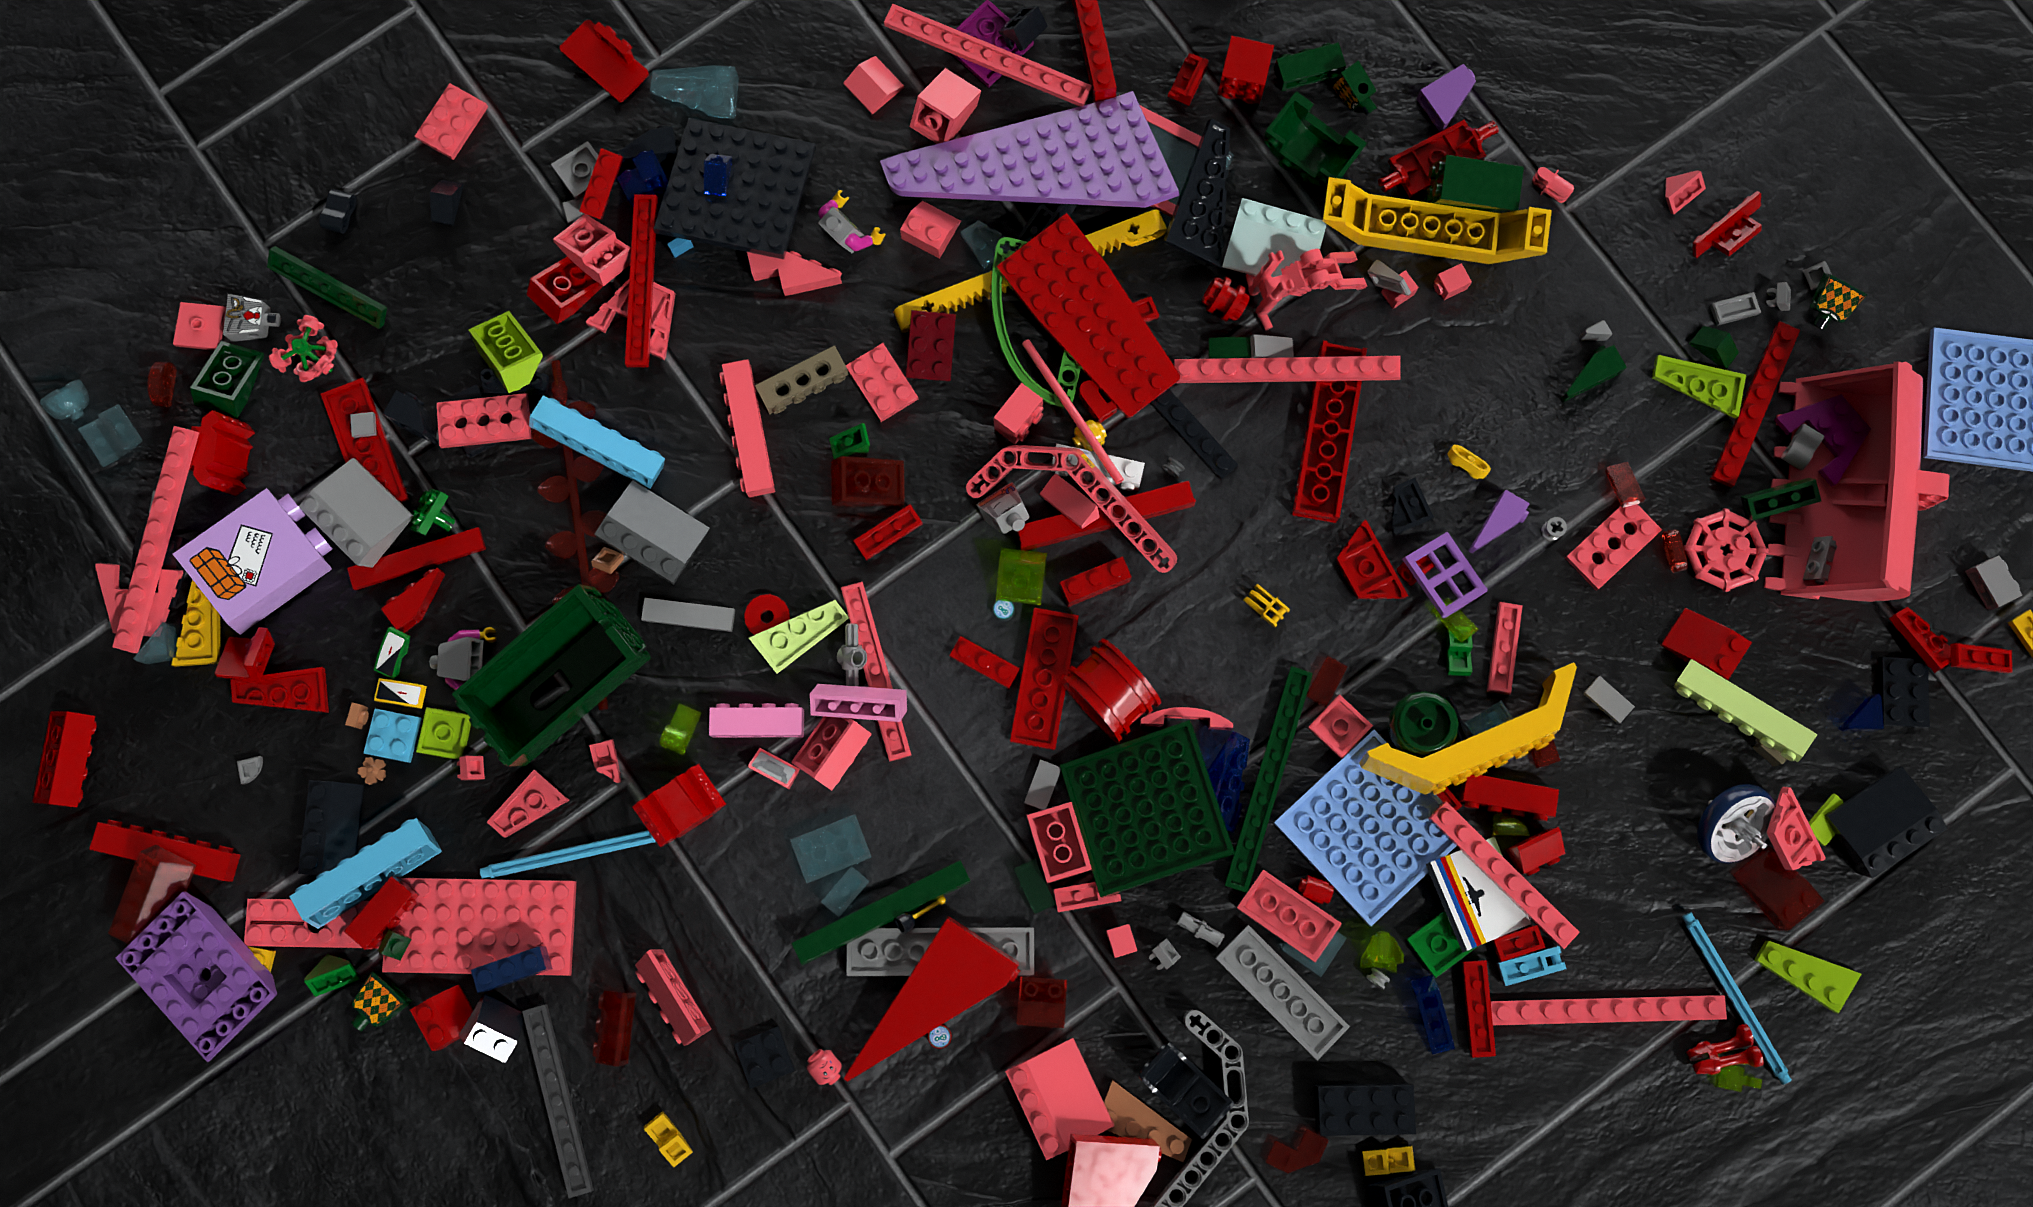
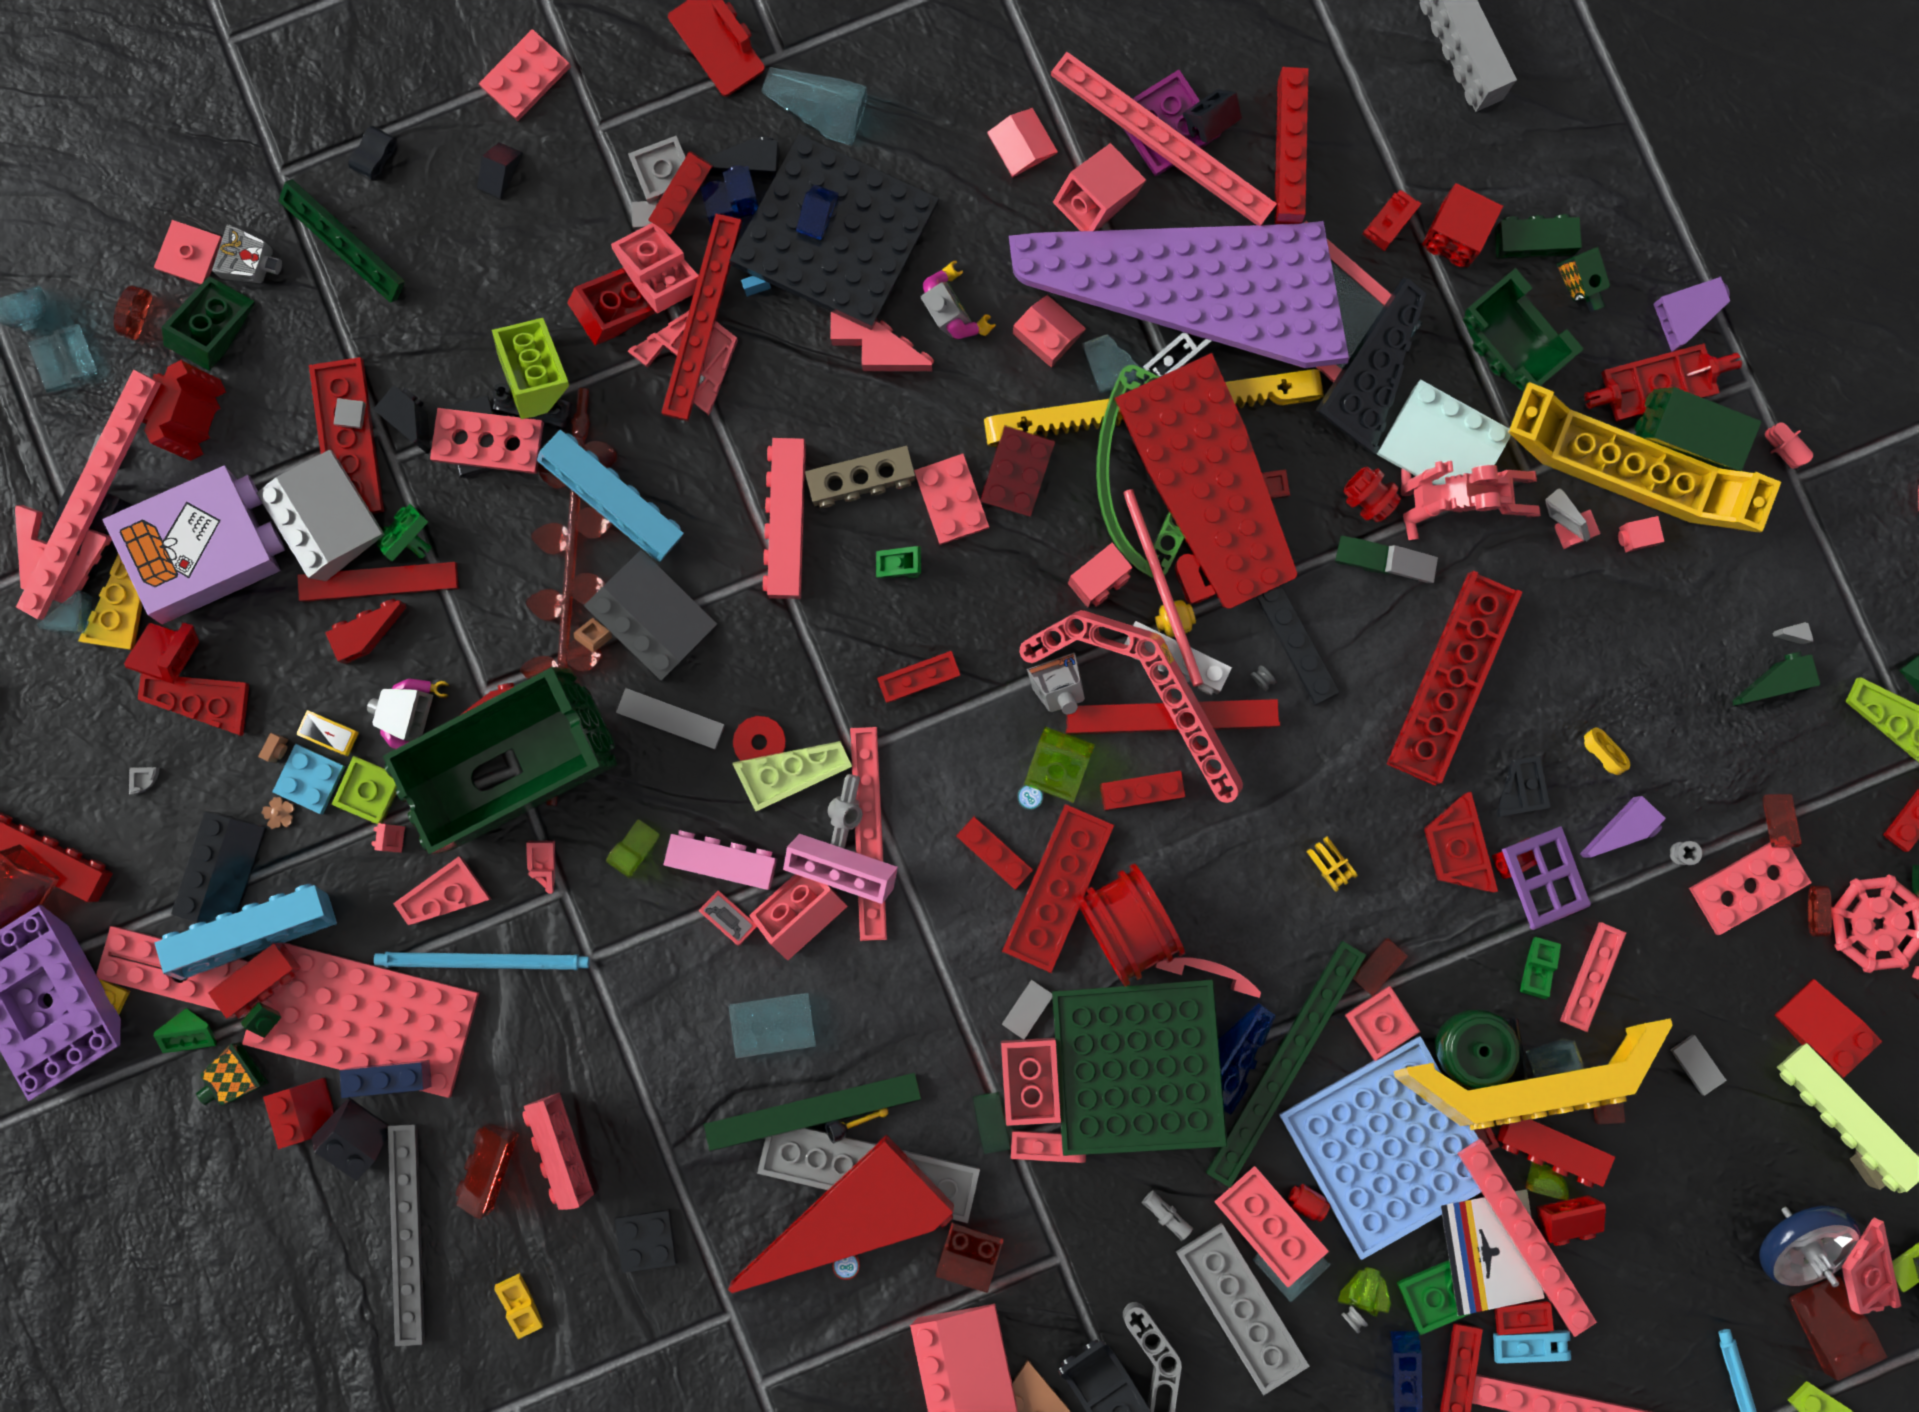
camera: 15 degrees right, 5 degrees up
(298, 345) = (295, 304): coral plant -> none
(391, 652) = (327, 685): slope -> none
(679, 805) = (612, 938): red slope -> none
(824, 1067) = (709, 1269): coral head -> none
(845, 891) = (777, 1077): clear light blue plate -> none
(867, 482) = (908, 613): clear red slope -> none
(1070, 501) = (1135, 692): coral slope -> none
(1121, 940) = (1075, 1209): coral panel -> none
(1166, 954) = (1121, 1235): light grey tile -> none
(1288, 369) = (1426, 595): coral plate -> none
(1457, 622) = (1546, 937): clear neon green tile -> none

